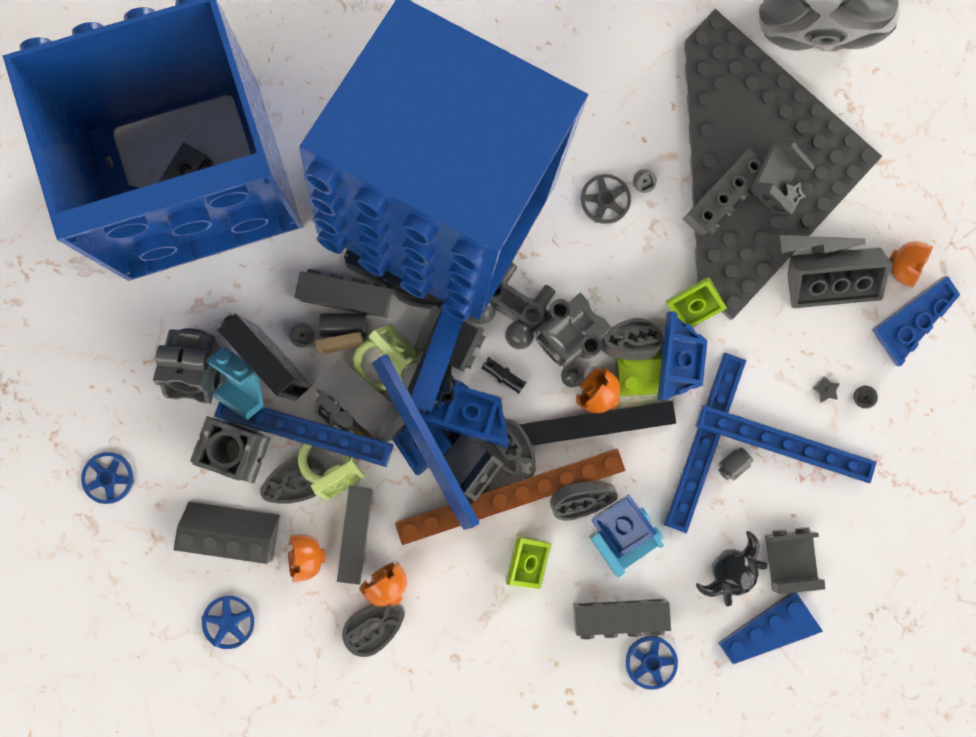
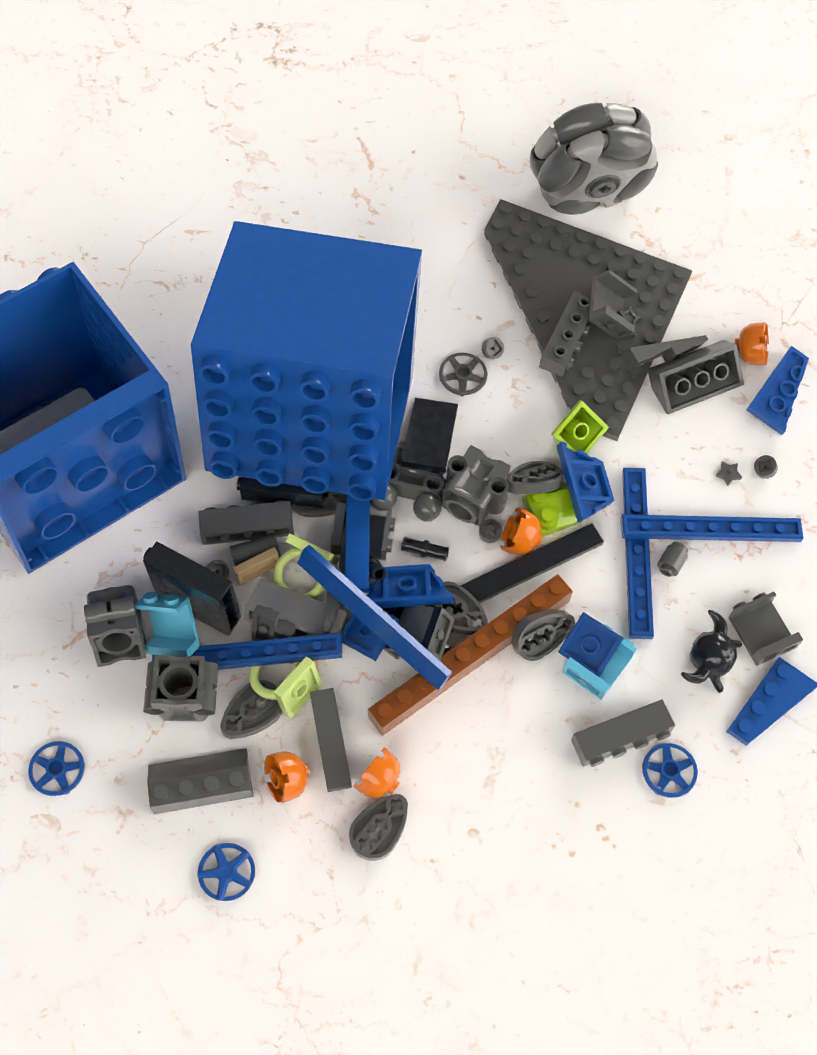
camera: 20 degrees left, 20 degrees down
(527, 562) = (511, 711): lime slope -> none
(547, 259) = (429, 435): none -> black tile

